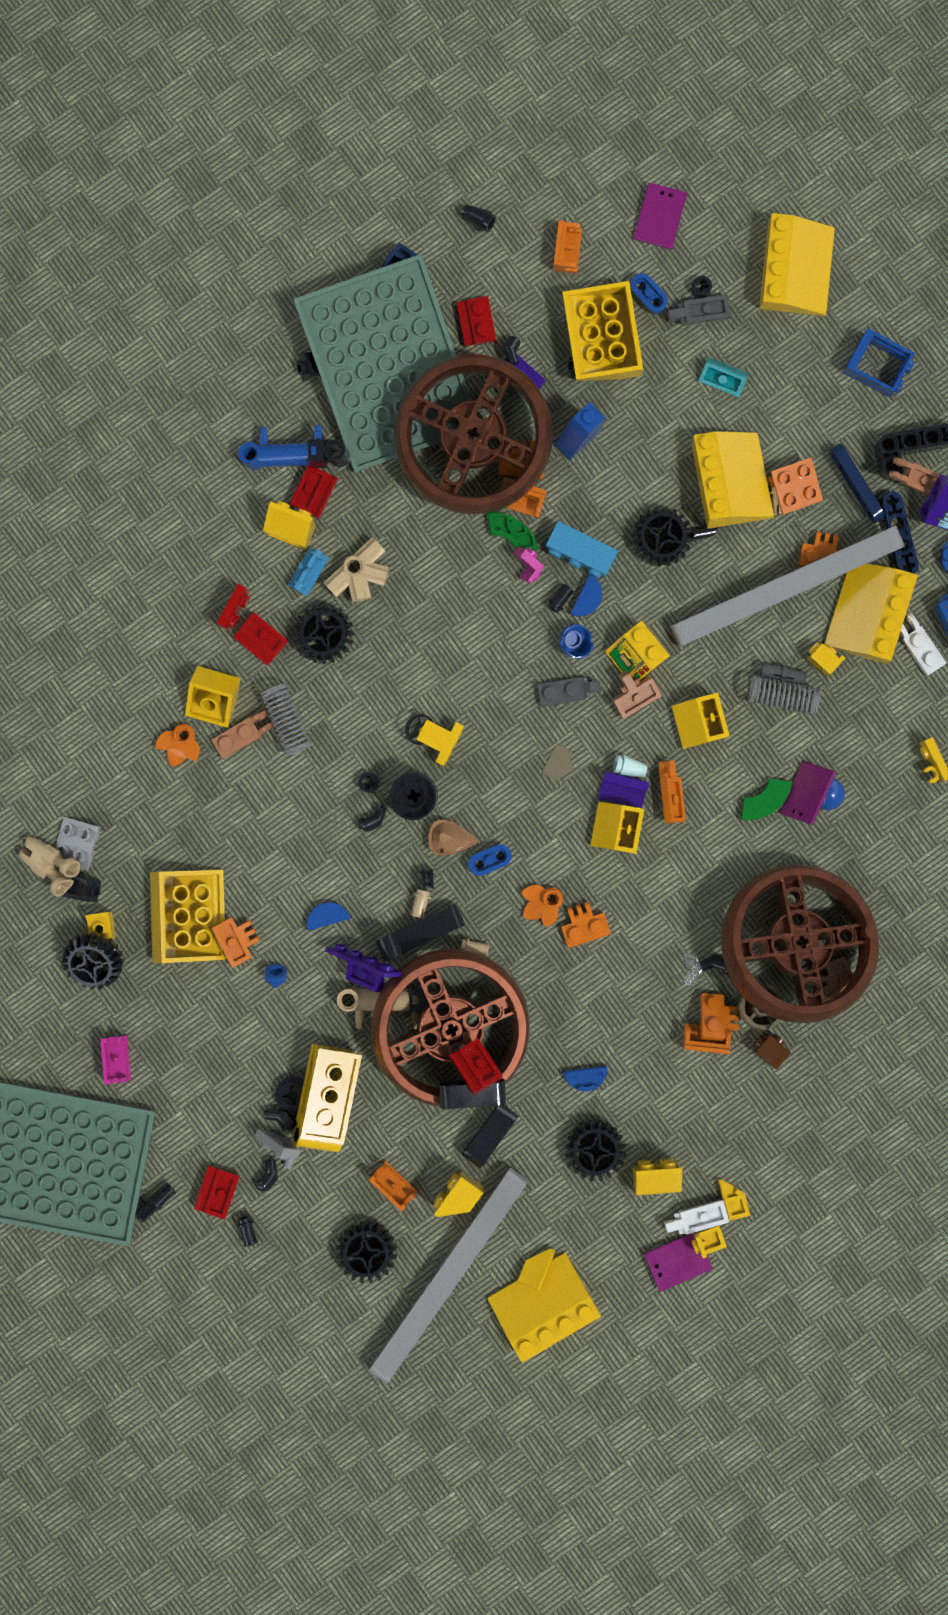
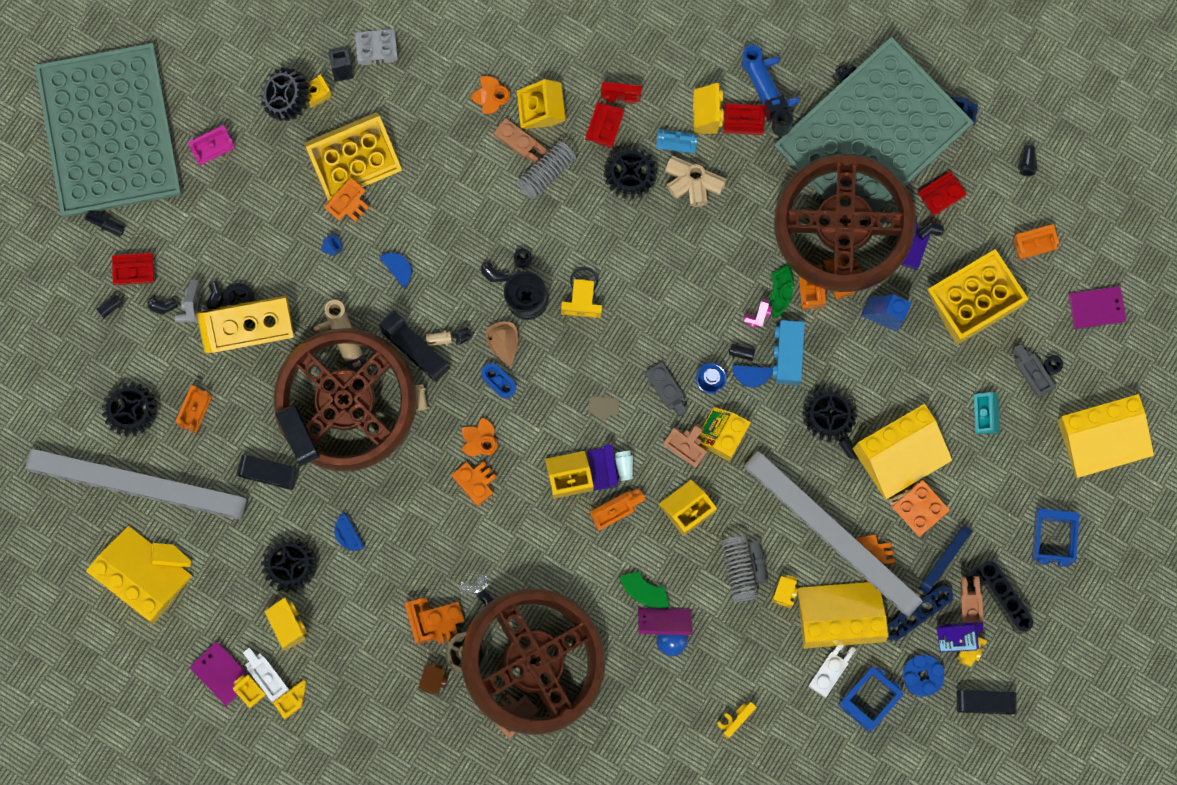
camera: 65 degrees right, 10 degrees down
(43, 860) = (352, 24): tan piece -> none
(363, 969) = (365, 310): dark purple bracket -> none
(459, 1197) = (208, 464): yellow slope -> none
(476, 1066) = (321, 426): red plate -> none
(649, 294) = (1028, 324): blue plate -> none

